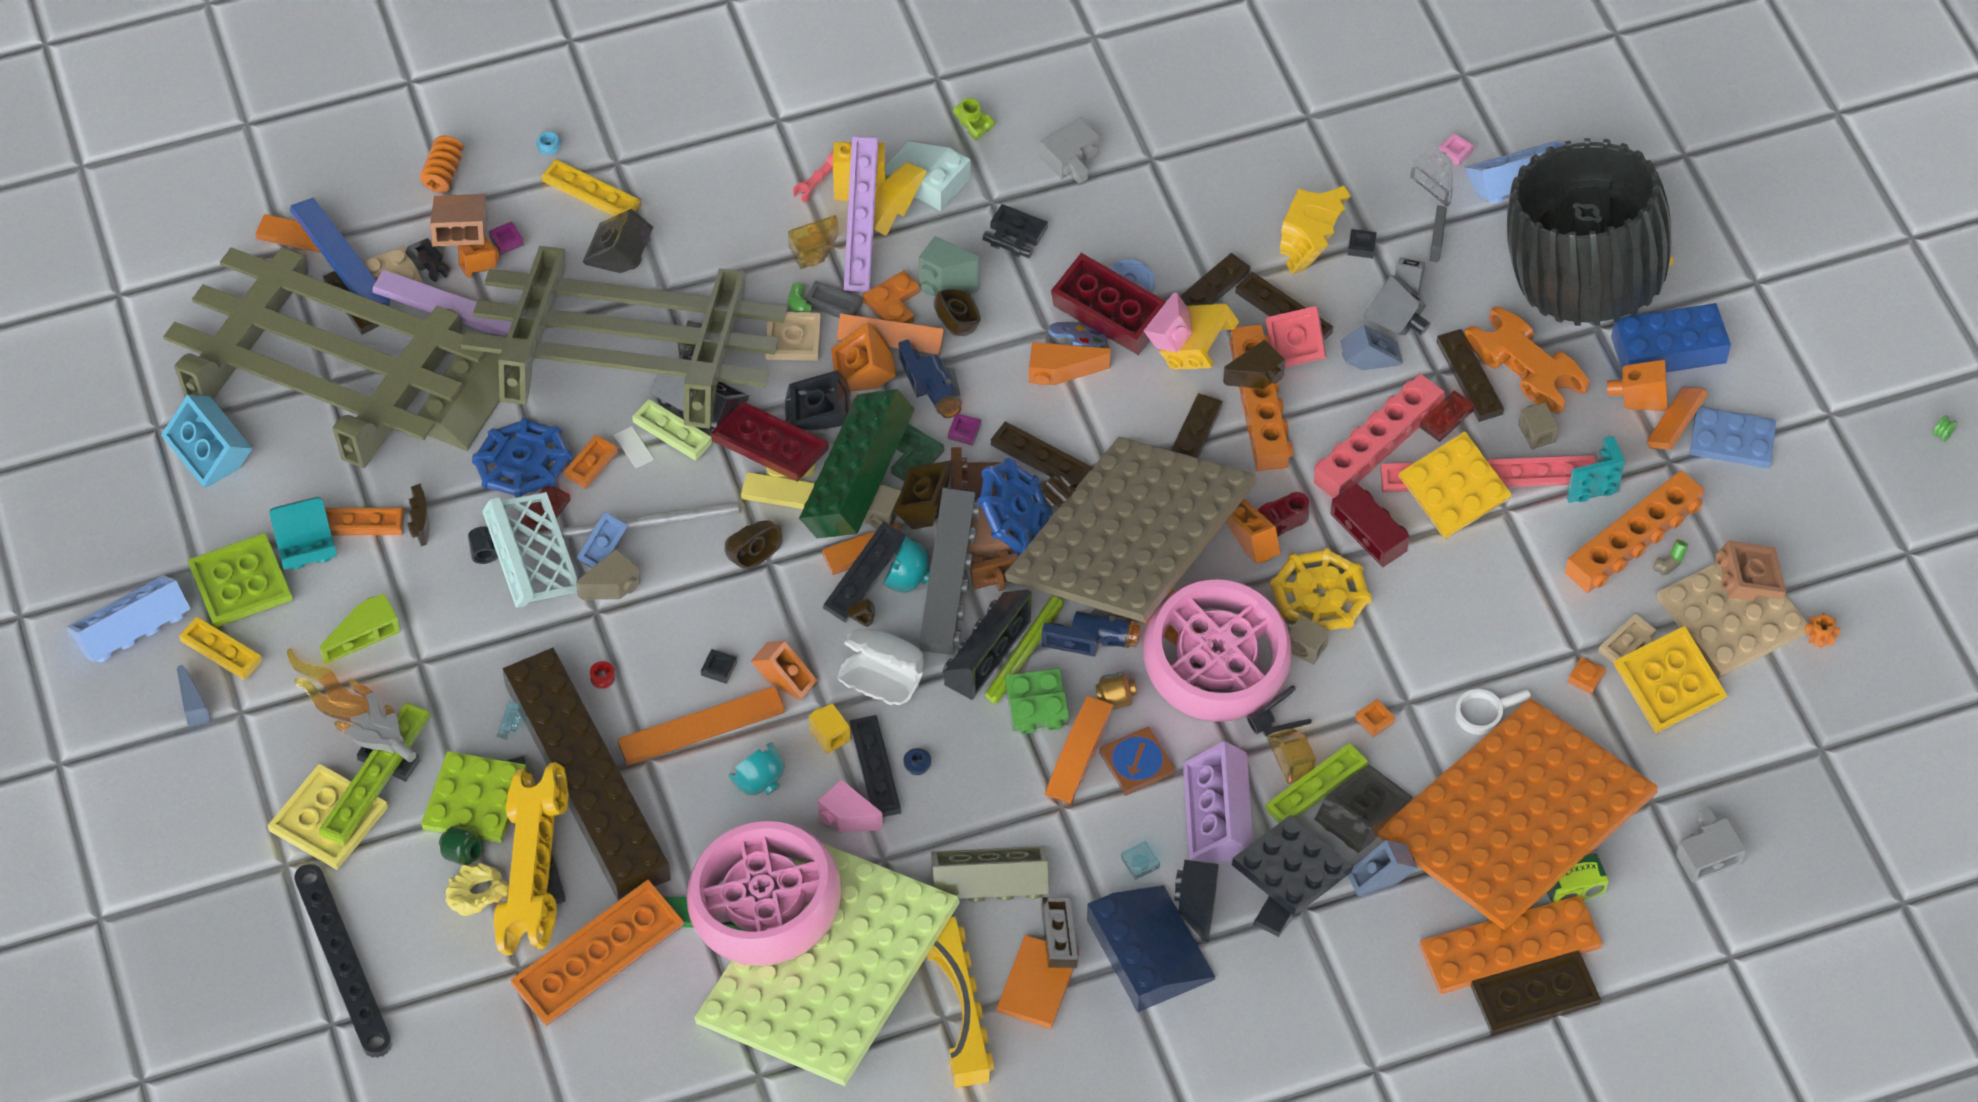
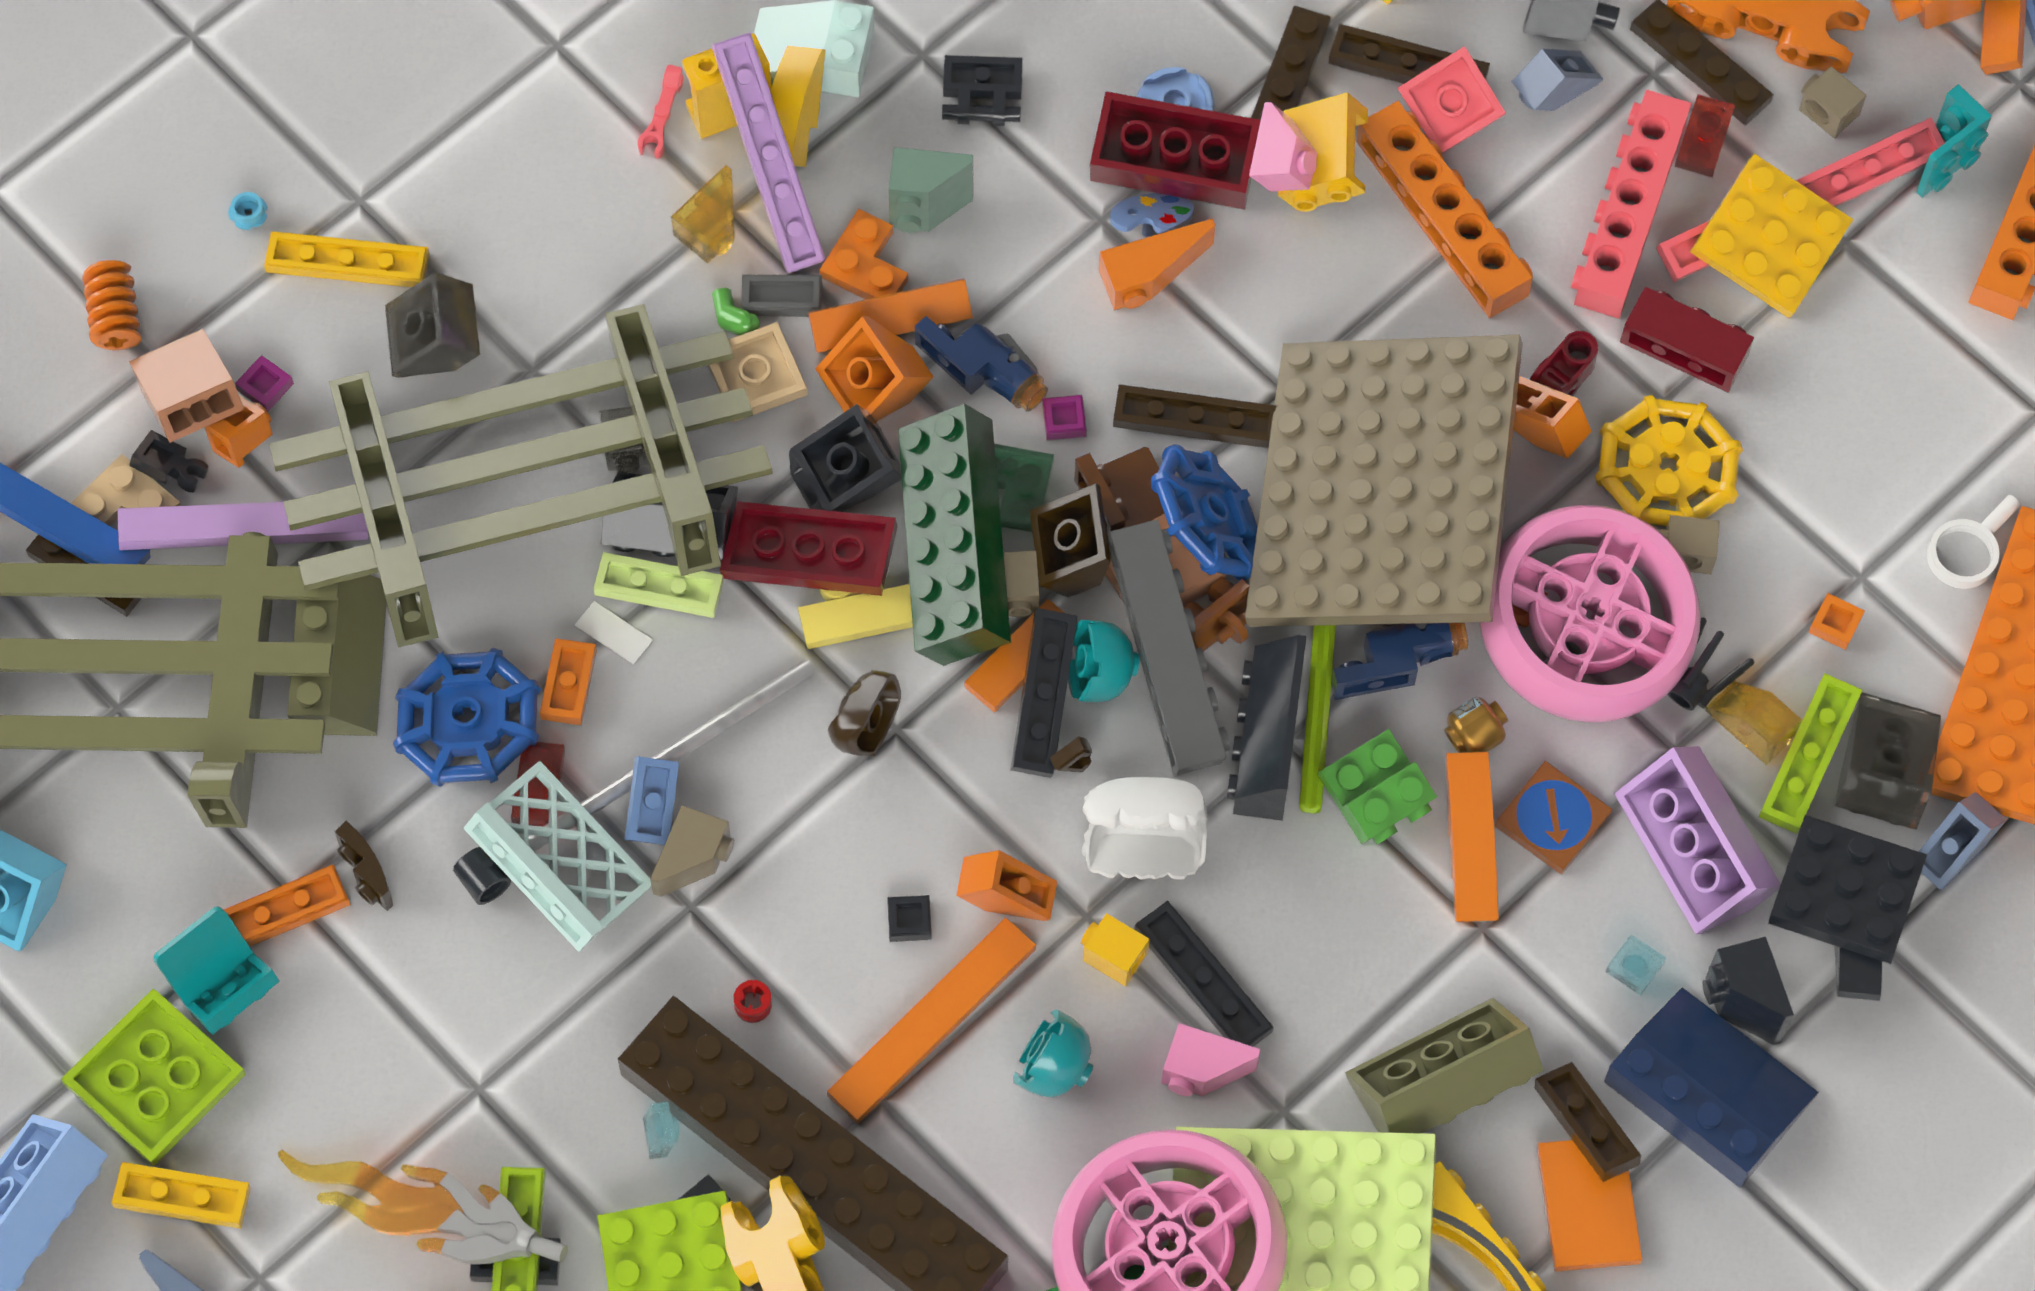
camera: 25 degrees left, 10 degrees up
(364, 626) = (378, 1068): lime slope -> none
(917, 768) = (1256, 957): dark blue plate -> none
(957, 311) = (968, 244): dark brown piece -> none
(1058, 490) = (1247, 459): dark brown gear -> none
(1197, 426) = (1379, 286): dark brown plate -> none
(1255, 368) = (1432, 170): dark brown slope -> none

